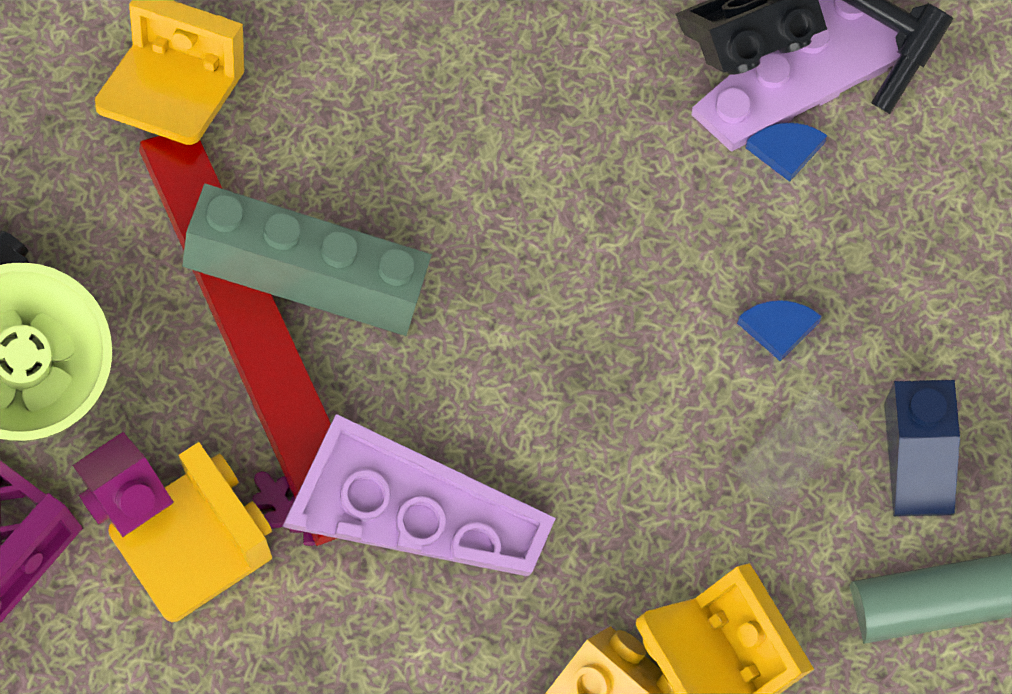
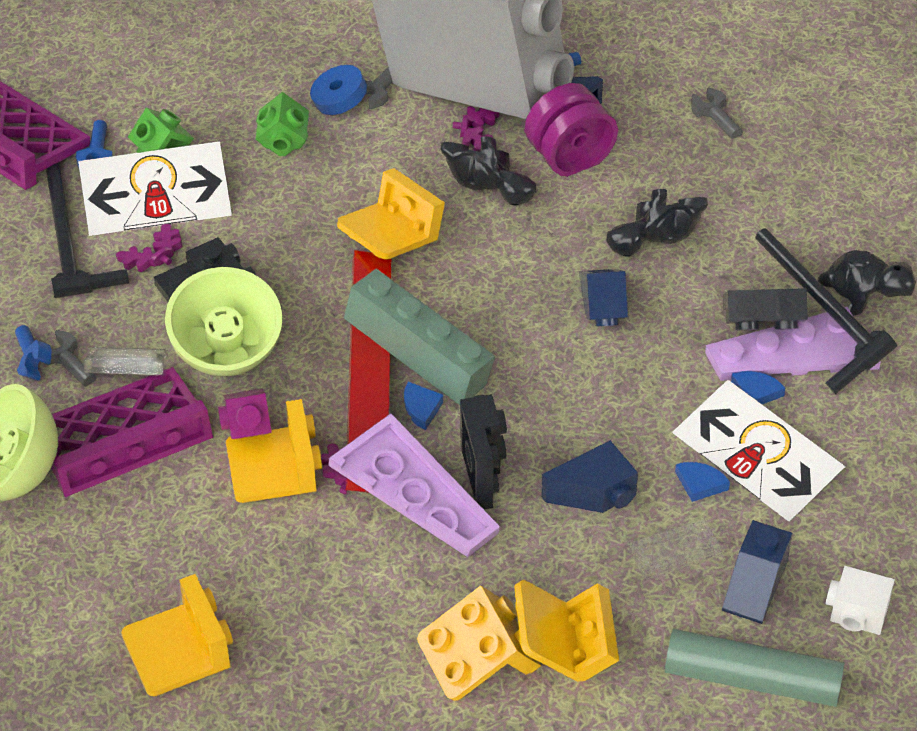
camera: 25 degrees right, 20 degrees down
(350, 356) = (421, 404): none -> blue tile
(474, 400) = (482, 445): none -> black plate
(521, 78) = (604, 295): none -> dark blue slope
(647, 391) = (592, 481): none -> dark blue slope
(832, 246) = (758, 450): none -> white sticker

